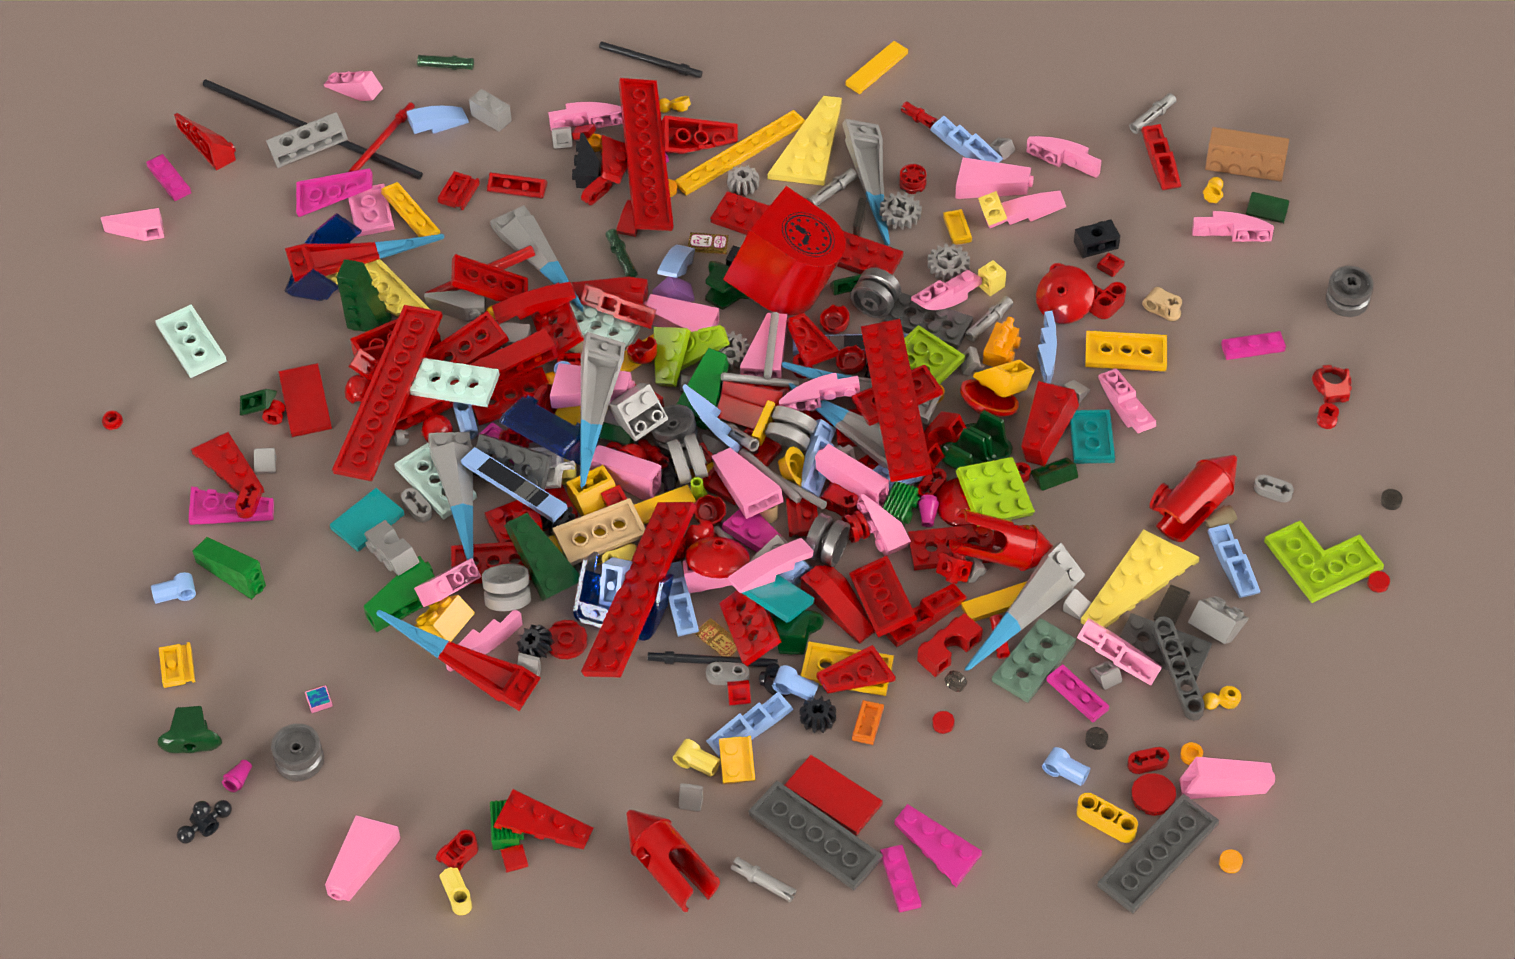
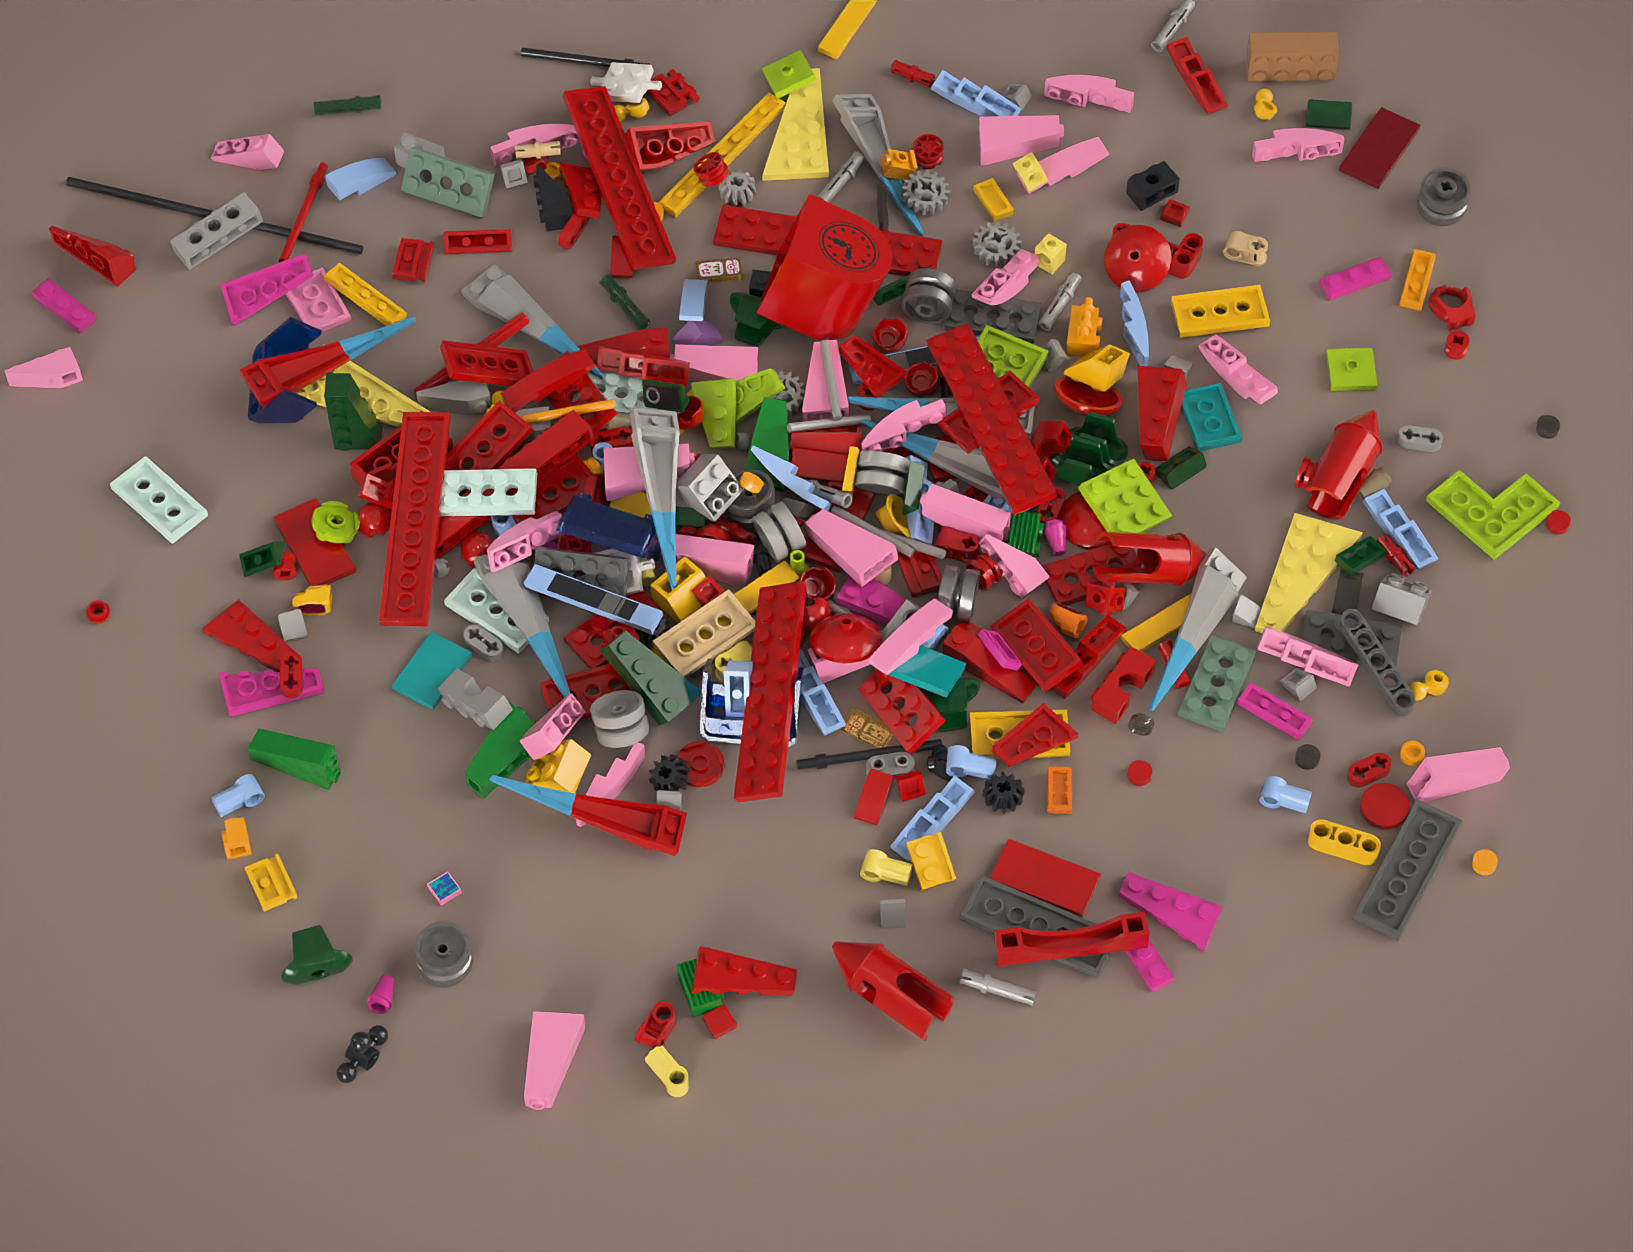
camera: 15 degrees left, 5 degrees up
(160, 622) = (236, 838): none -> light orange brick
(289, 444) = (314, 600): none -> yellow rock
(330, 393) = (337, 533): none -> lime plate
(467, 426) = (521, 539): none -> bright pink slope
(515, 129) = (436, 190): none -> sand green plate
(528, 330) = (580, 409): none -> light orange bar
(586, 121) = (538, 150): none -> tan pin
(627, 332) = (664, 395): none -> slope
(675, 414) = (751, 482): none -> light orange tile
(678, 81) = (627, 81): none -> white plate
(704, 696) = (873, 797): none -> red slope
(707, 95) = (669, 97): none -> red plate
(724, 161) = (711, 170): none -> red wheel
(812, 444) = (913, 487): none -> slope
(813, 97) = (788, 74): none -> lime plate
(849, 593) = (999, 649): none -> dark pink tile
(875, 854) = (1114, 935): none -> red arch
(883, 183) = (898, 164): none -> light orange brick
(918, 581) = (1068, 619): none -> orange rock
(1191, 576) = (1360, 555): none -> dark green plate
(1223, 582) = (1396, 556): none -> red pin
(1228, 419) = (1351, 369): none -> lime plate
(1305, 242) = (1379, 148): none -> dark red tile
(1308, 356) = (1417, 279): none -> light orange tile

